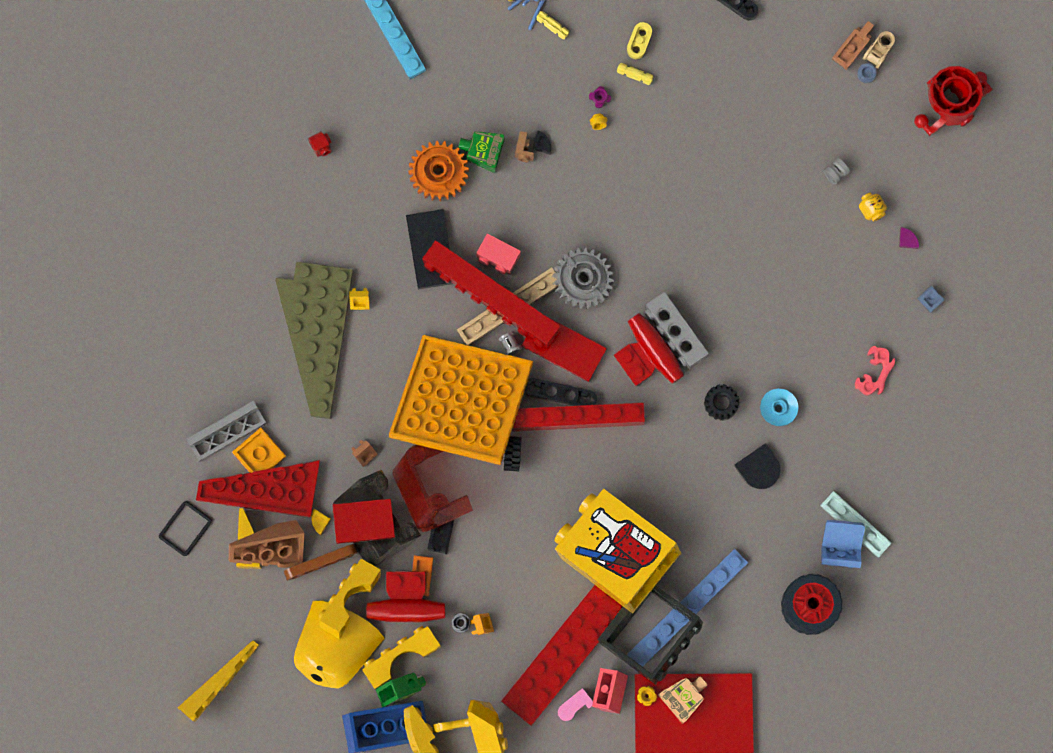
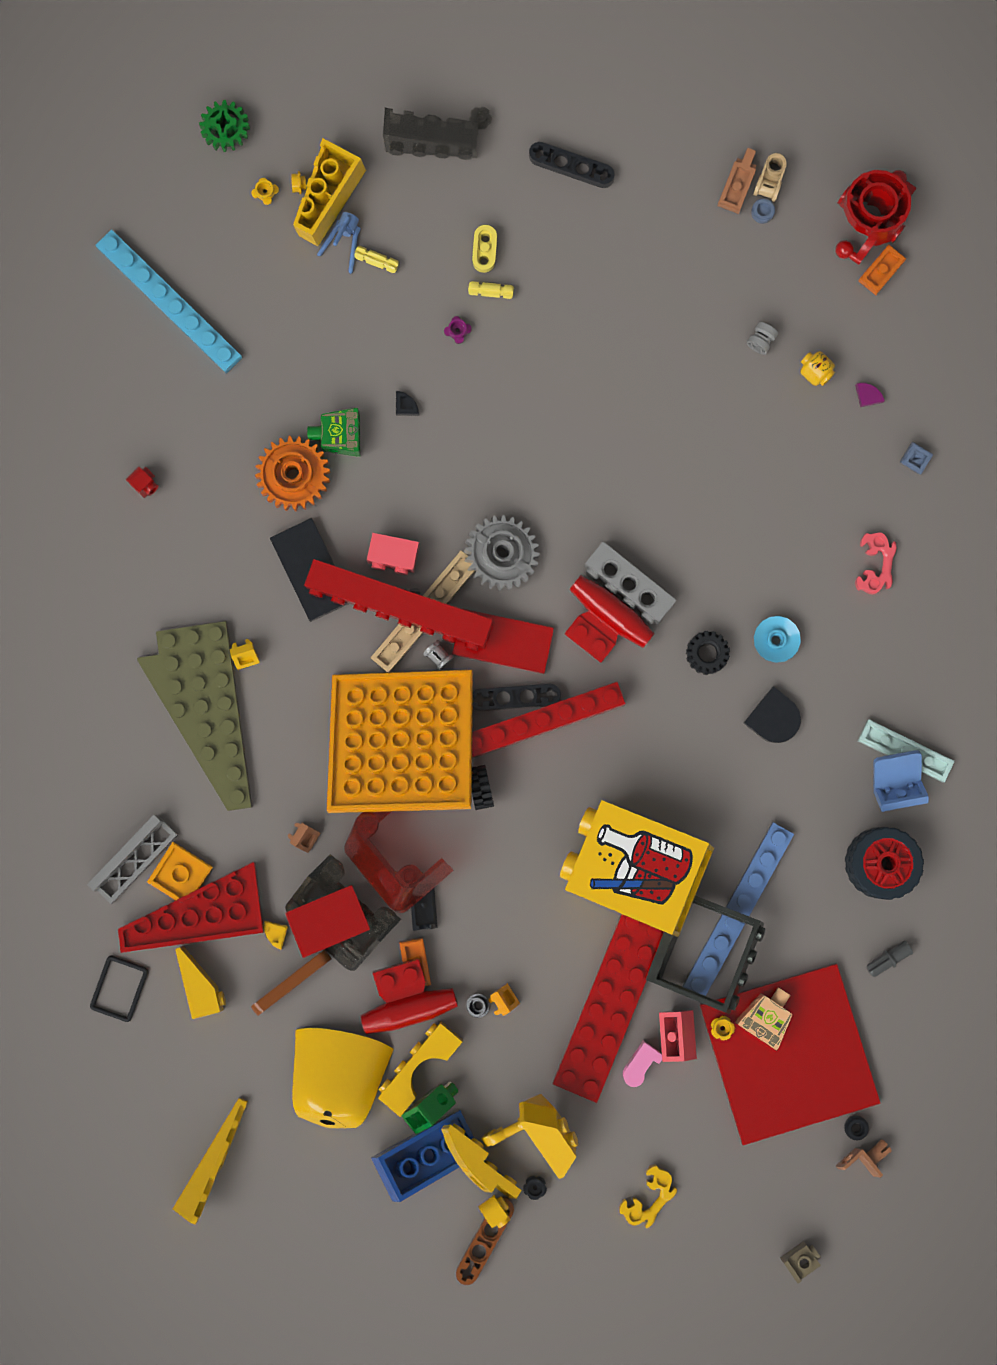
camera: 15 degrees left, 5 degrees up
(275, 545) = (231, 980): nougat wedge -> none
(361, 579) = (346, 987): yellow arch -> none
(523, 144) = (383, 413): medium nougat bracket -> none
(598, 122) = (465, 360): yellow plate -> none
(794, 682) = (889, 959): none -> dark grey axle
(947, 145) = (882, 269): none -> orange plate

